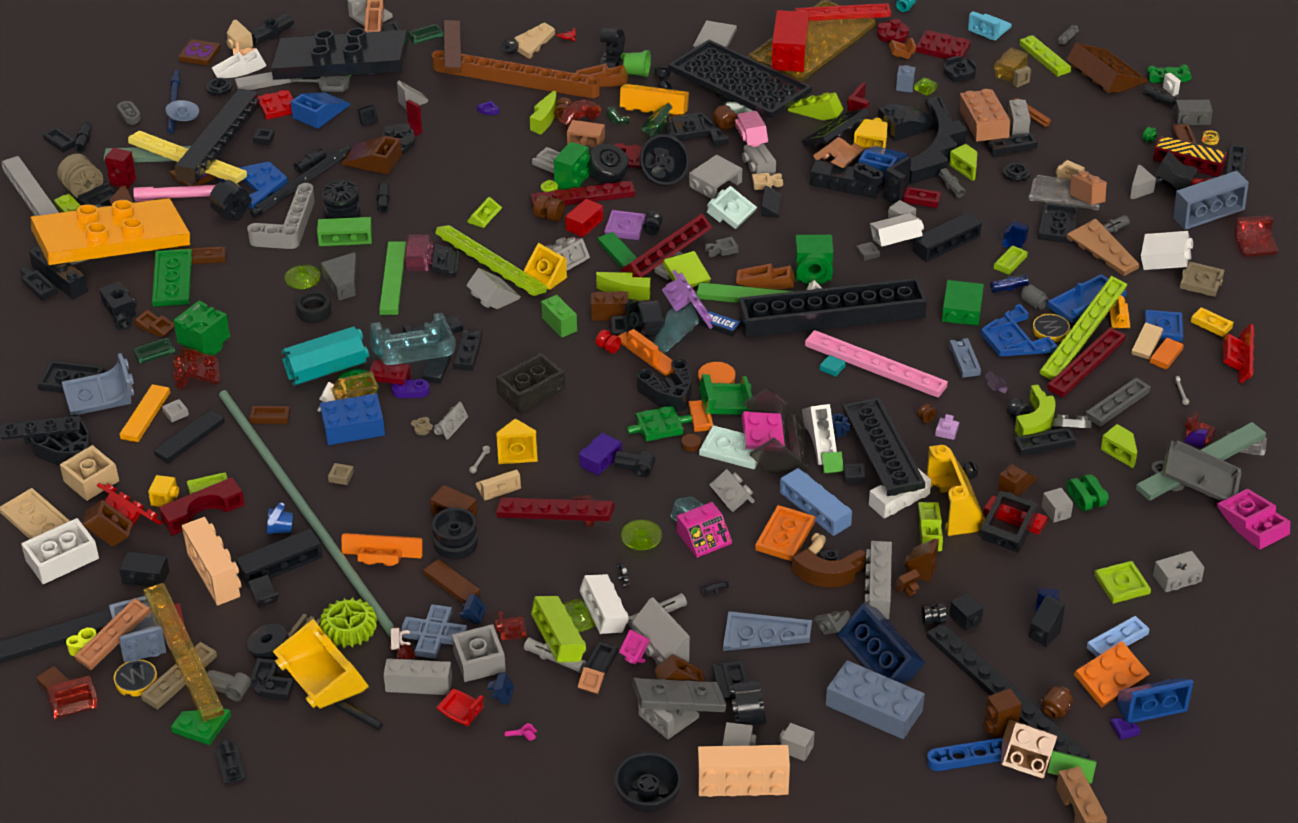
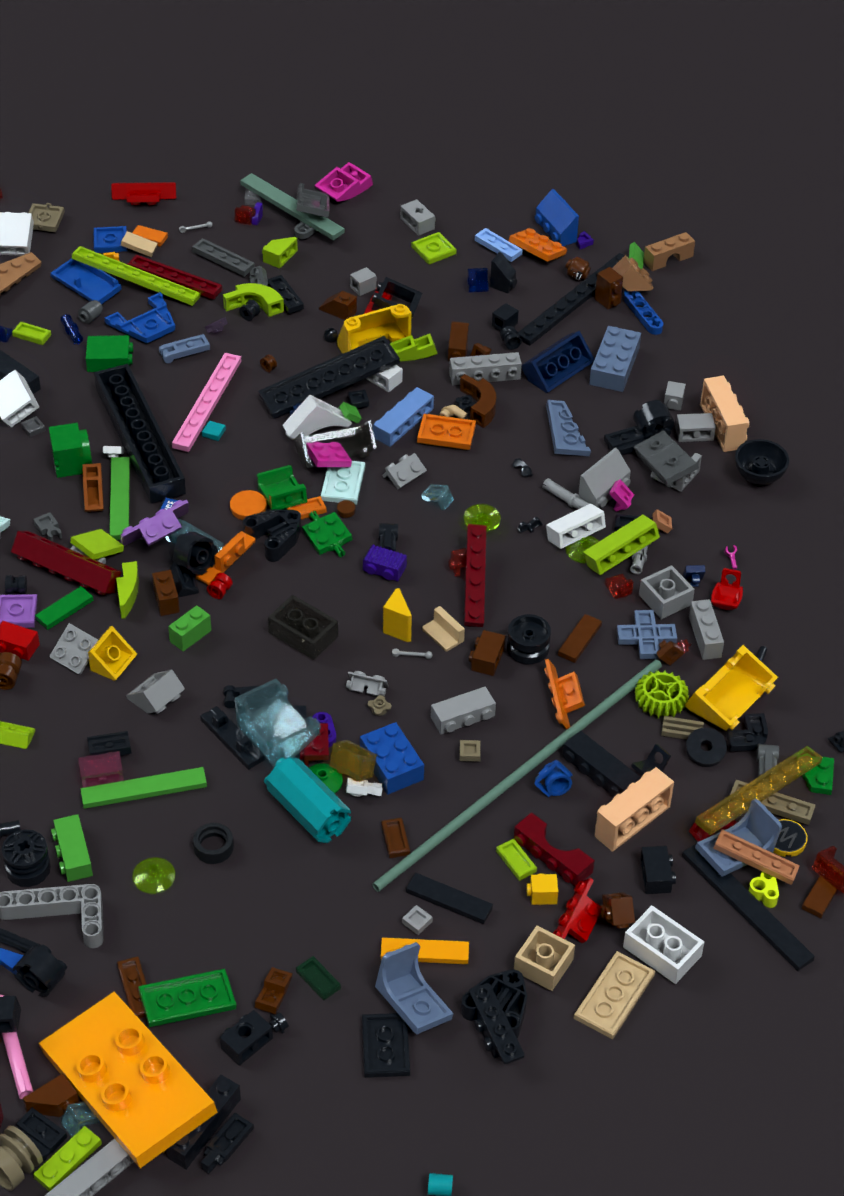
camera: 105 degrees left, 5 degrees up
(195, 365) = (347, 923): clear red bracket -> none
(202, 329) = (292, 921): green piece -> none
(341, 275) = (156, 828): dark grey slope -> none
(388, 476) = (463, 710): none -> light grey brick
(473, 609) = (612, 611): dark blue tile -> none
(491, 260) = (101, 706): lime plate -> none
(678, 669) = (639, 470): reddish brown slope -> none
(703, 529) = (461, 481): dark pink slope -> none
(832, 622) = (541, 389): dark grey bracket -> none
(947, 427) = (281, 352): lavender tile -> none
(1052, 326) = (128, 301): tile -> none
(1087, 492) = (342, 266): green brick -> none
(1212, 322) = (104, 210): yellow plate -> none

